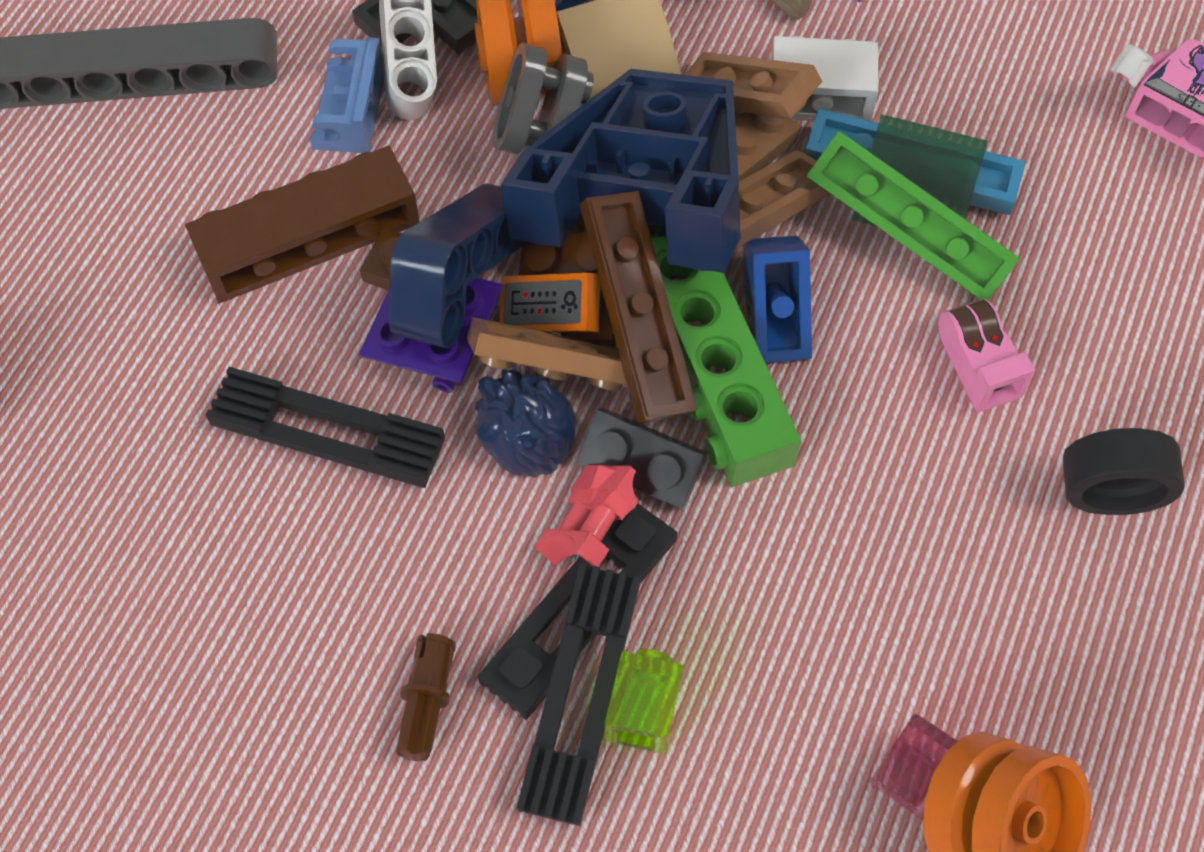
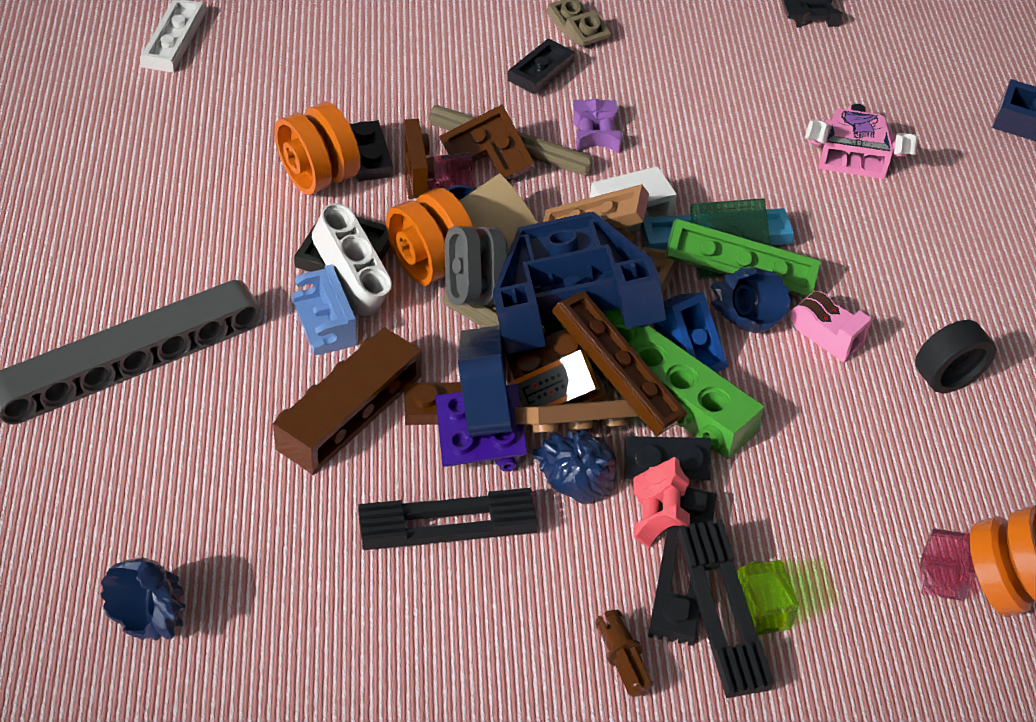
camera: 30 degrees left, 15 degrees down
(888, 278) = (752, 299): none -> dark blue hair

